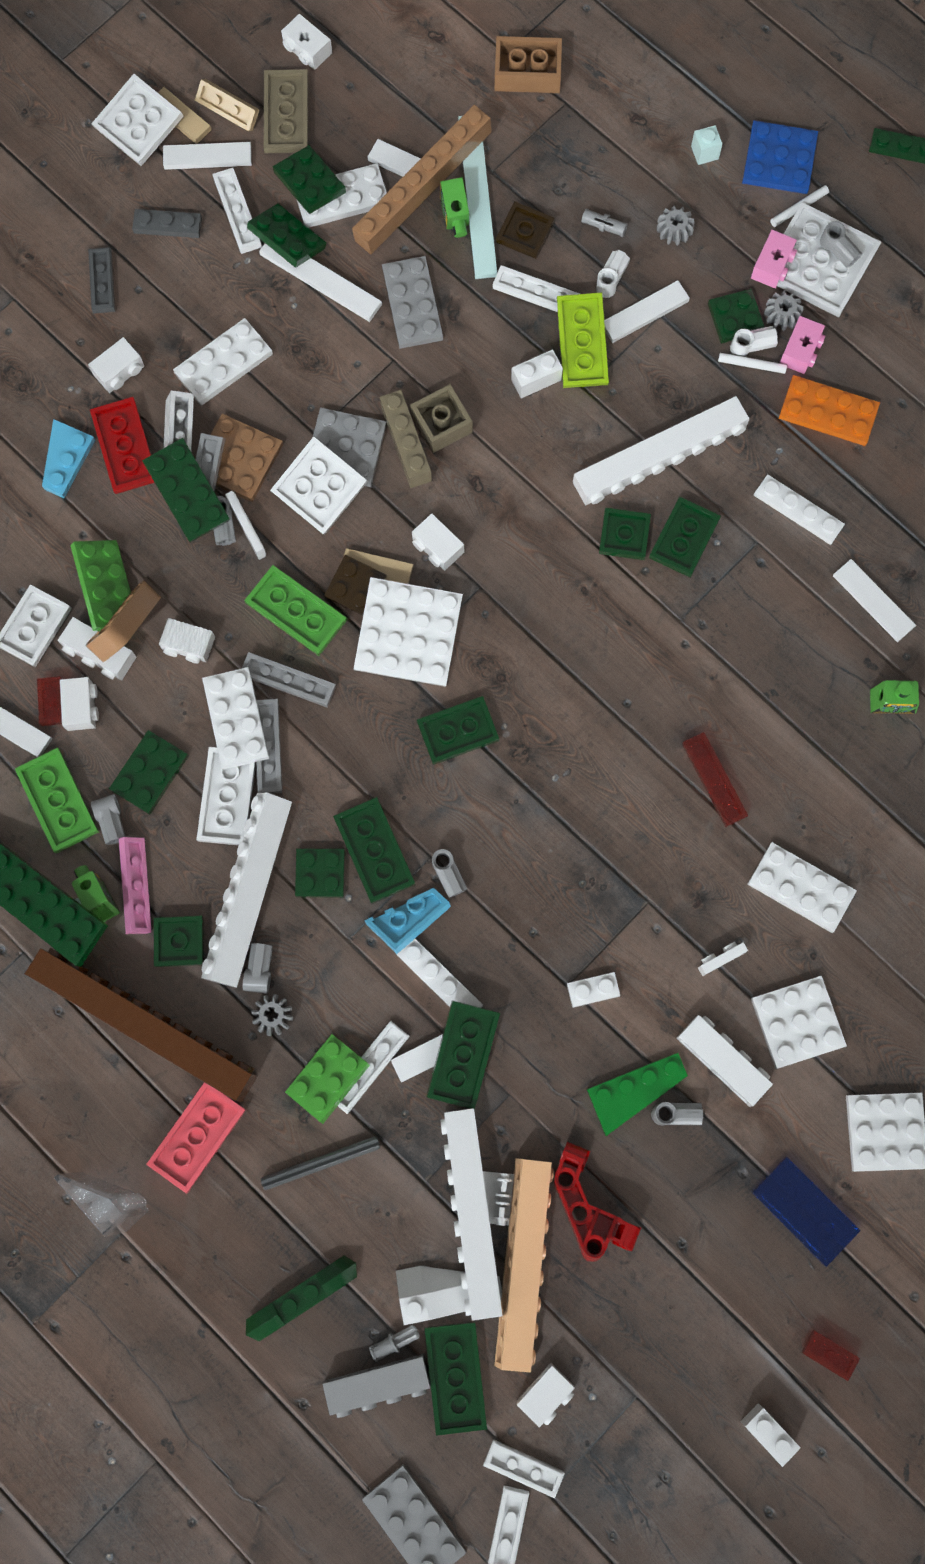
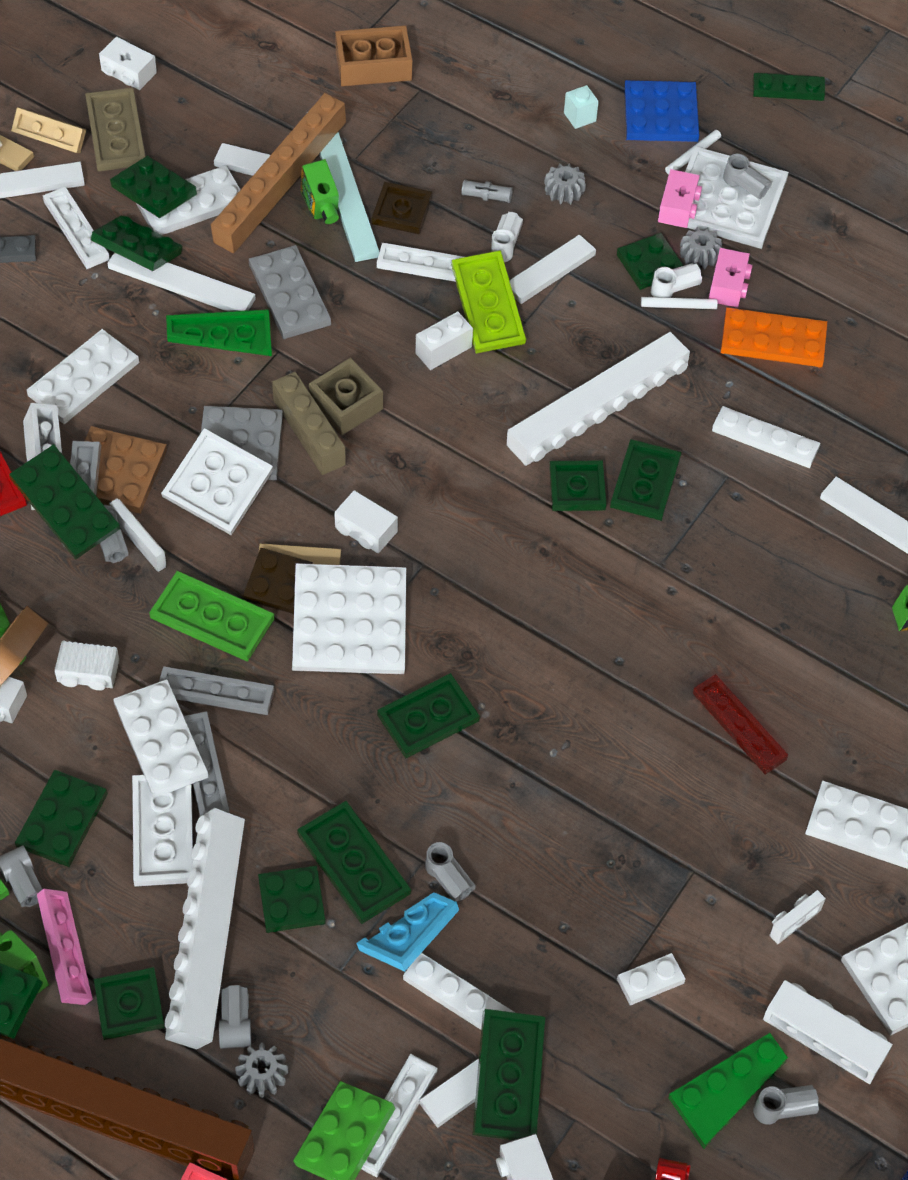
camera: 15 degrees left, 20 degrees down
(351, 335) = (223, 330): none -> green wing

